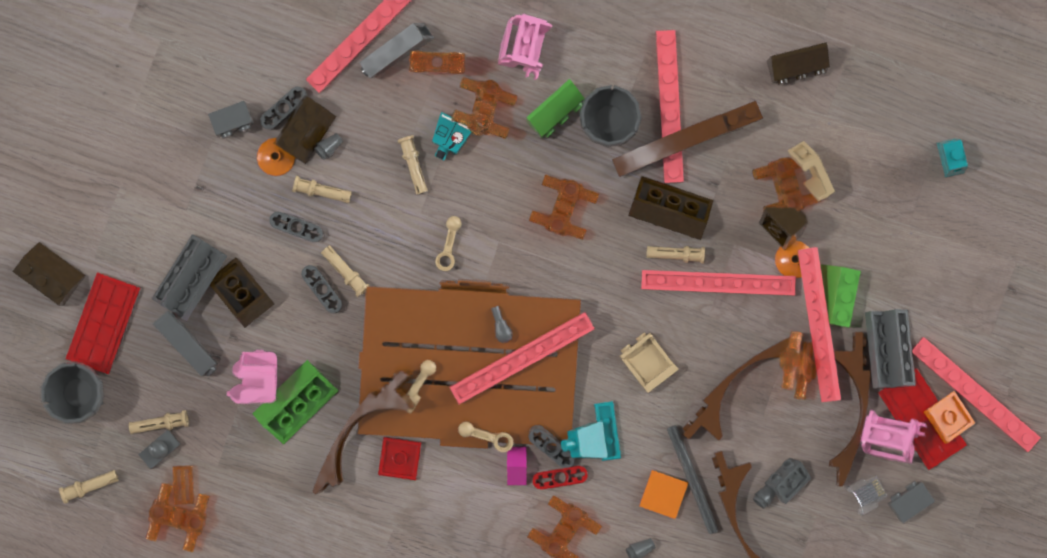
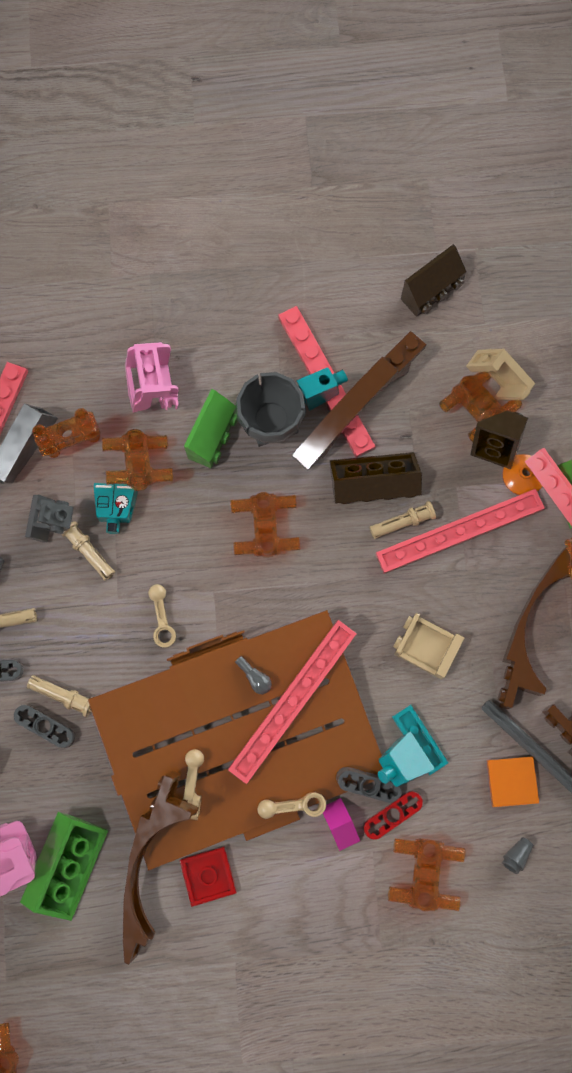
camera: 25 degrees left, 10 degrees down
(399, 127) = (53, 518): none -> dark grey tile
(652, 114) = (321, 386): none -> teal torso

